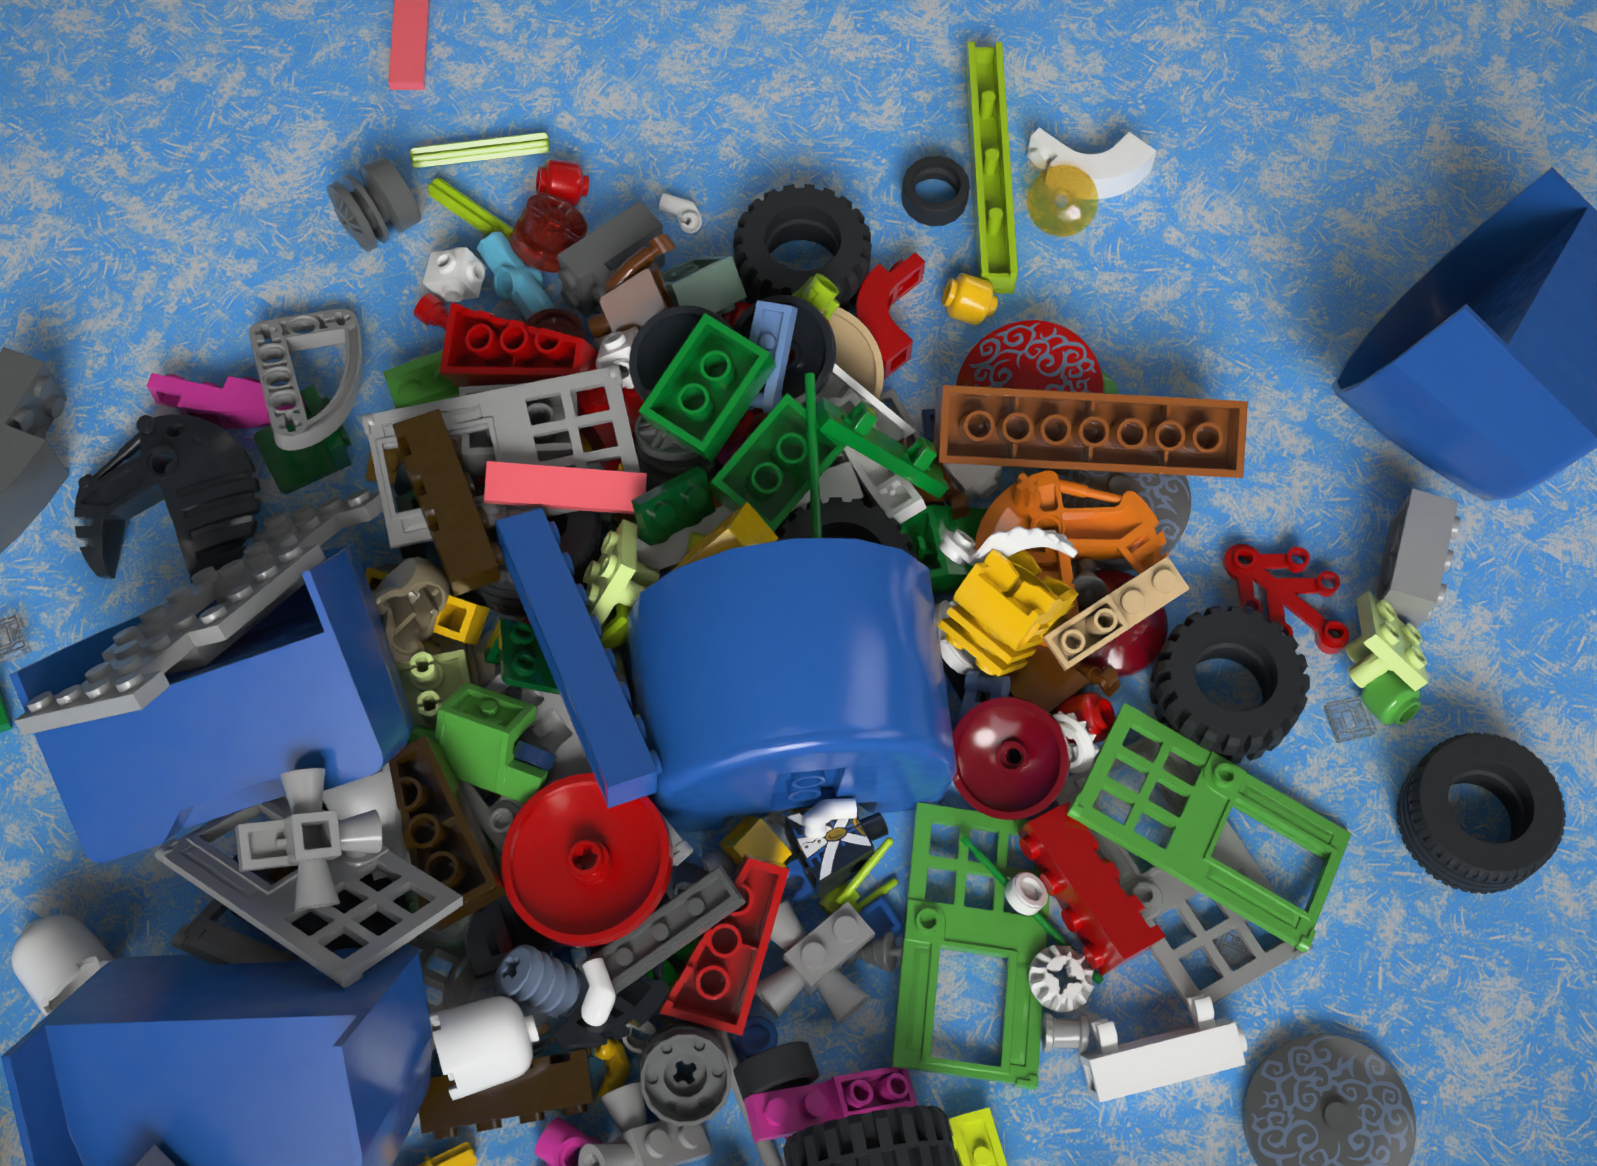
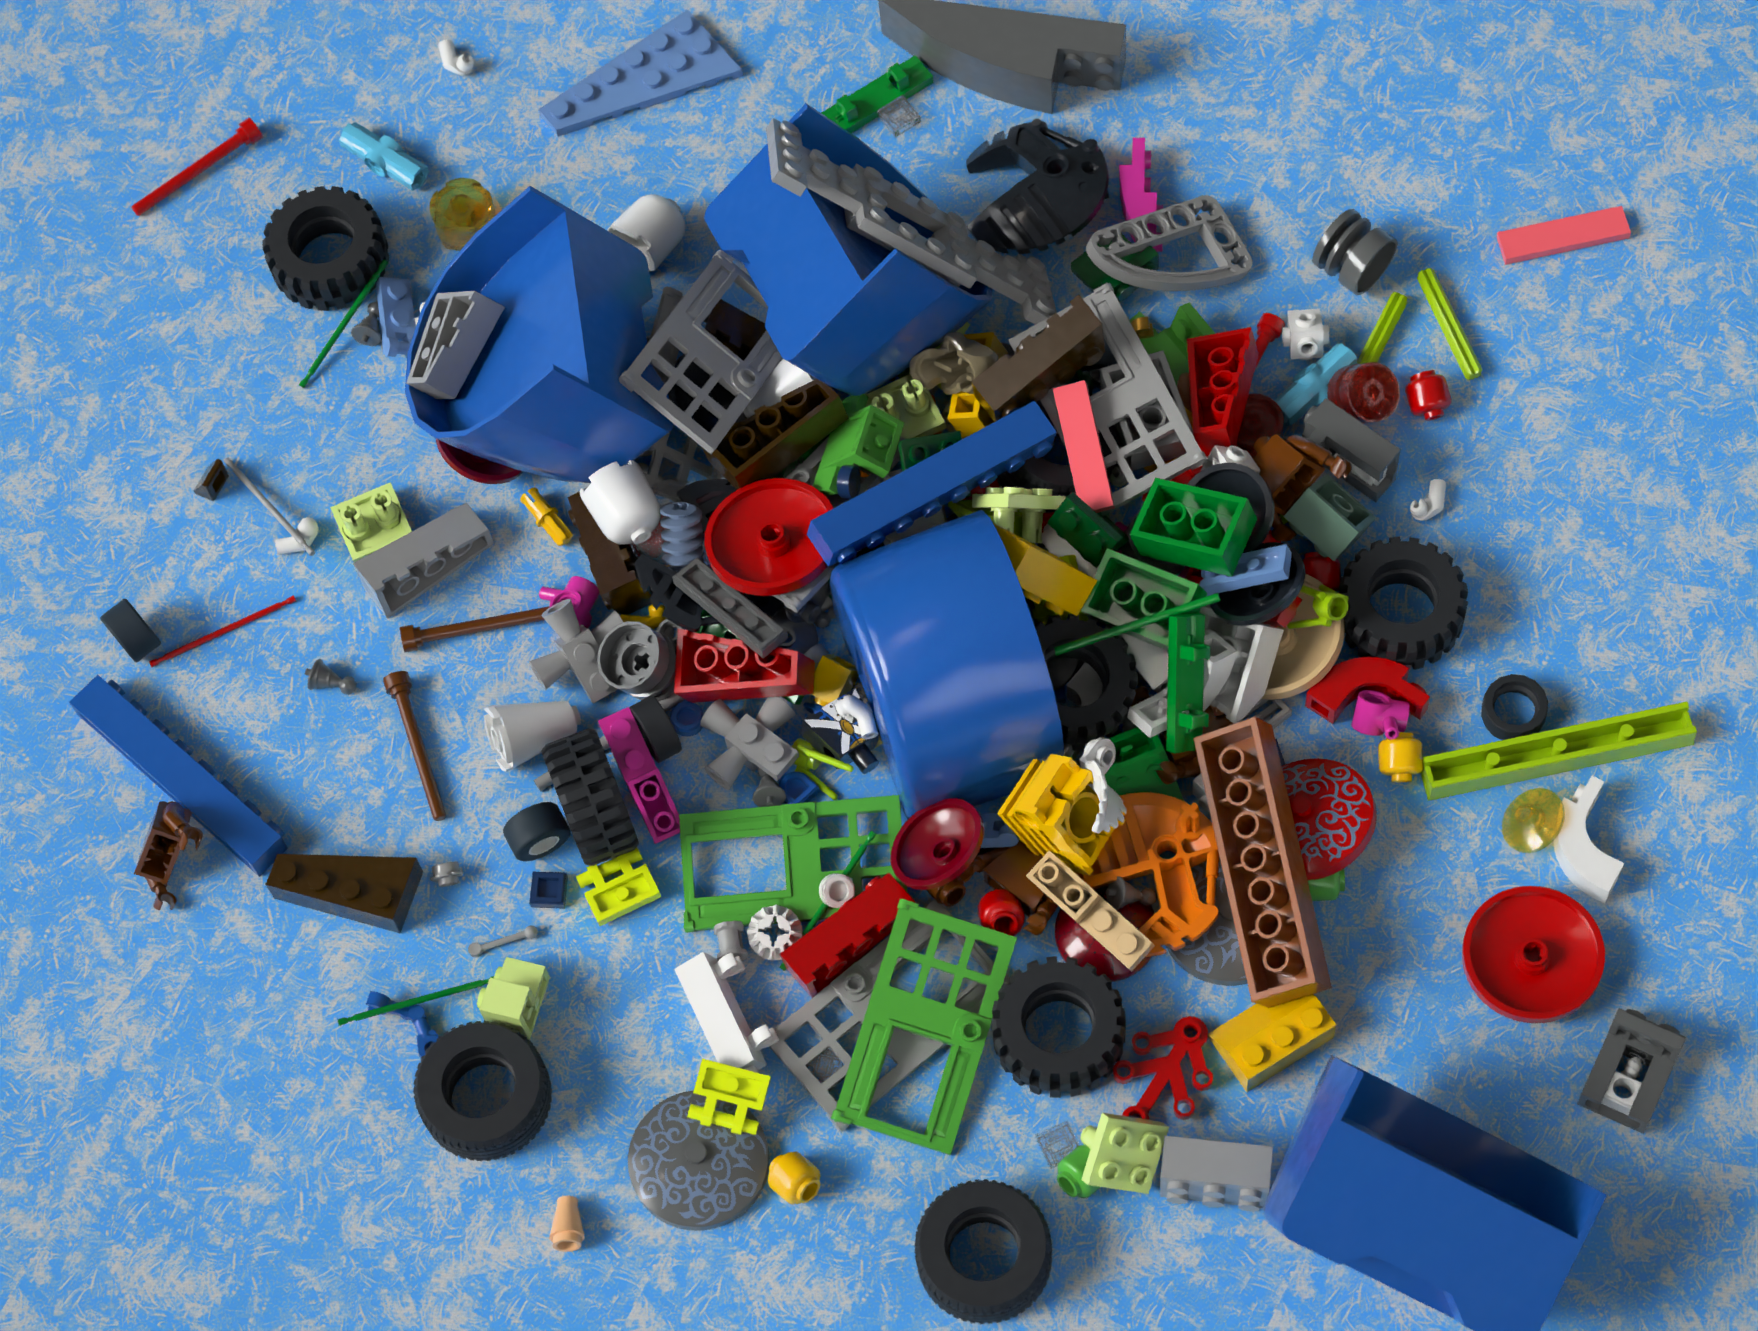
camera: 90 degrees right, 0 degrees up
(307, 839) = (725, 329): light grey brick -> none
(600, 993) = (671, 574): white arm -> none
(920, 302) = (1379, 714): none -> dark pink piece
(1083, 754) = (973, 899): white gear -> none
(1208, 231) = (1533, 954): none -> red dish
(1265, 1056) = (733, 1086): none -> neon yellow plate
(1272, 493) = (1272, 1038): none -> yellow slope
(1350, 183) = (1645, 1044): none -> dark grey brick
(1369, 1008) = (794, 1178): none -> yellow head

